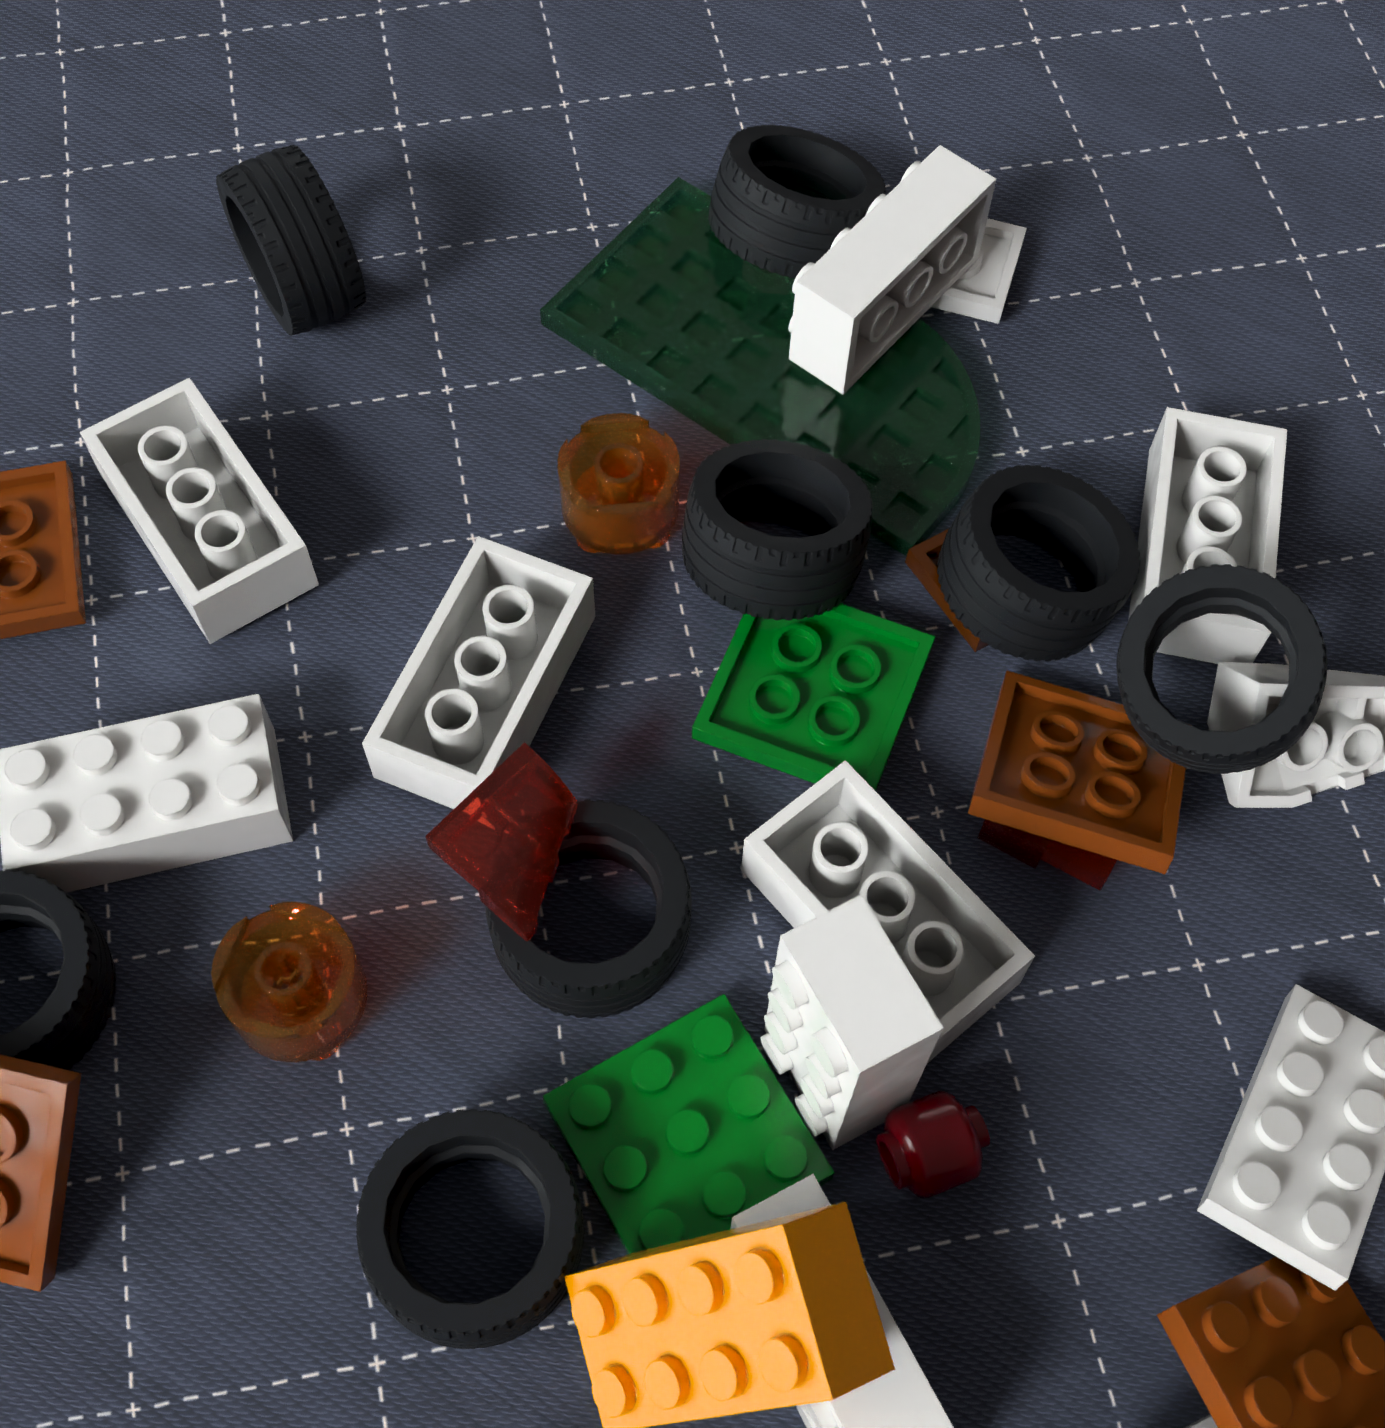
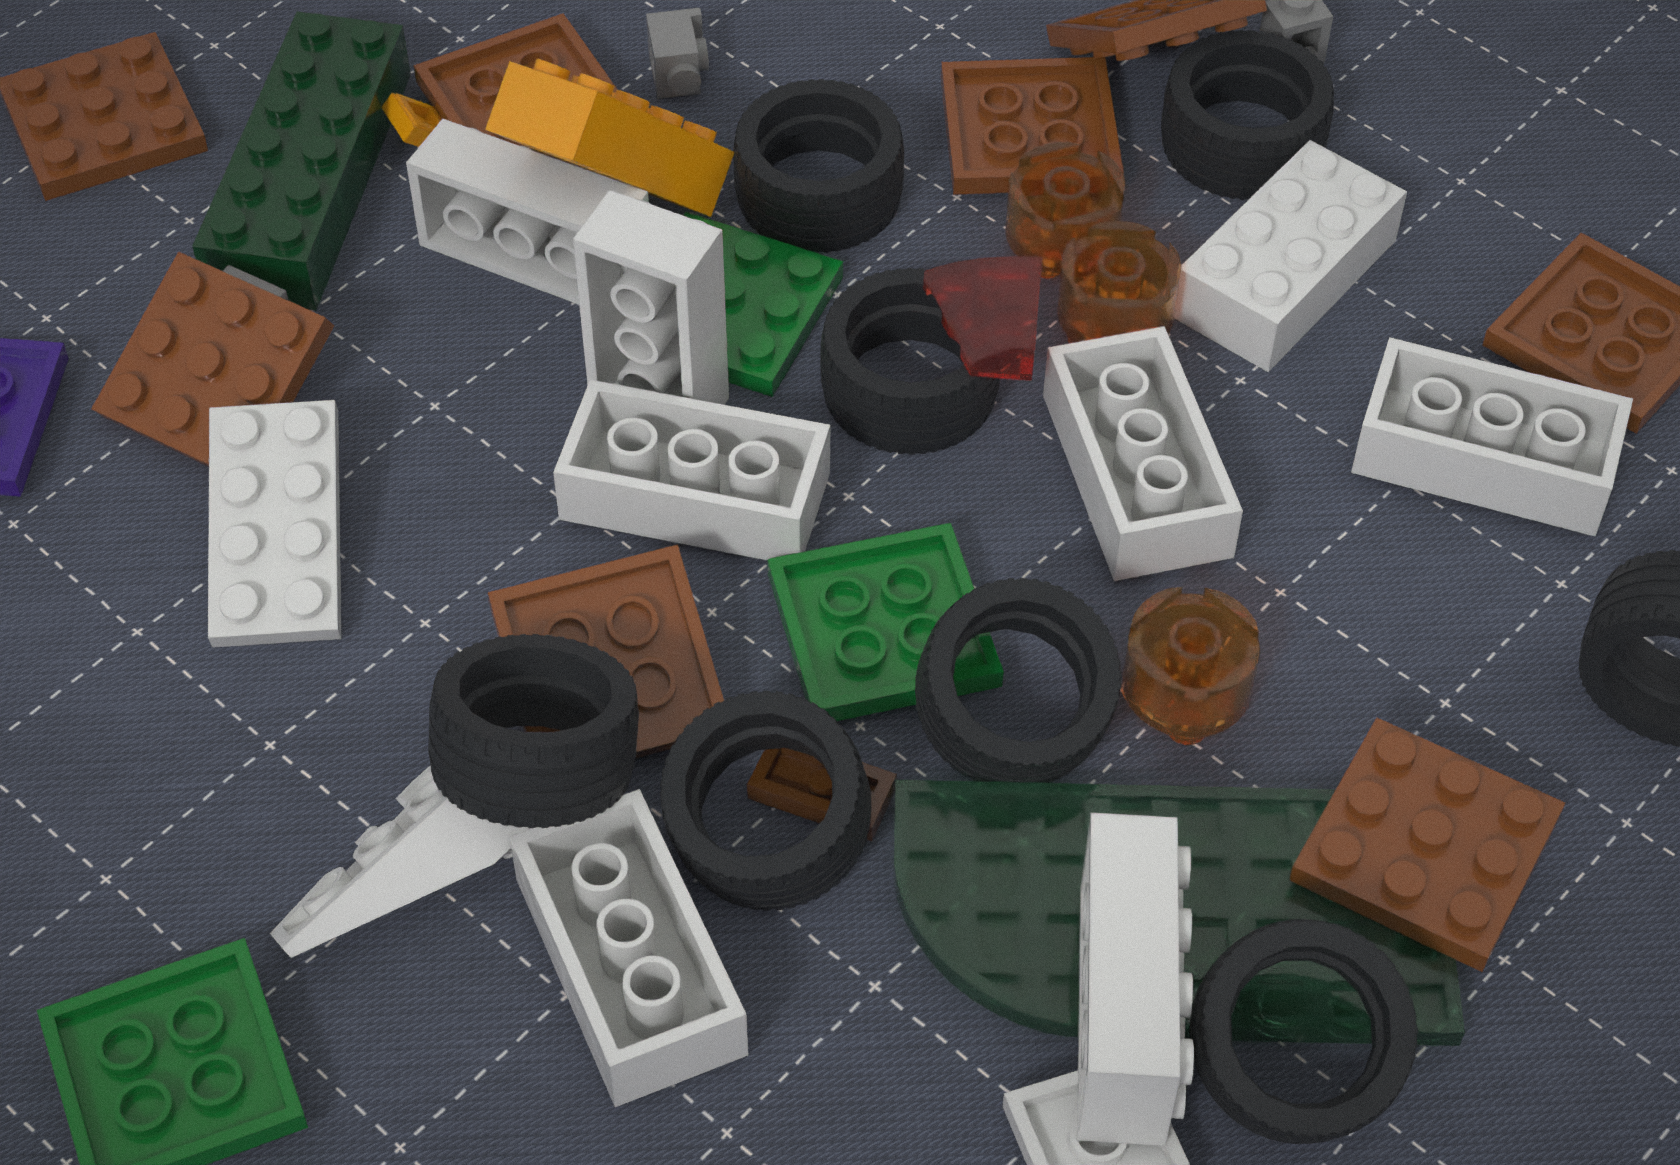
camera: 145 degrees right, 10 degrees down
(202, 1150) = (1012, 106): none -> dark orange plate
(345, 819) = (1117, 282): none -> clear orange brick
(586, 275) = (1428, 843): none -> dark orange plate
(933, 1144) = (549, 366): dark red head -> none

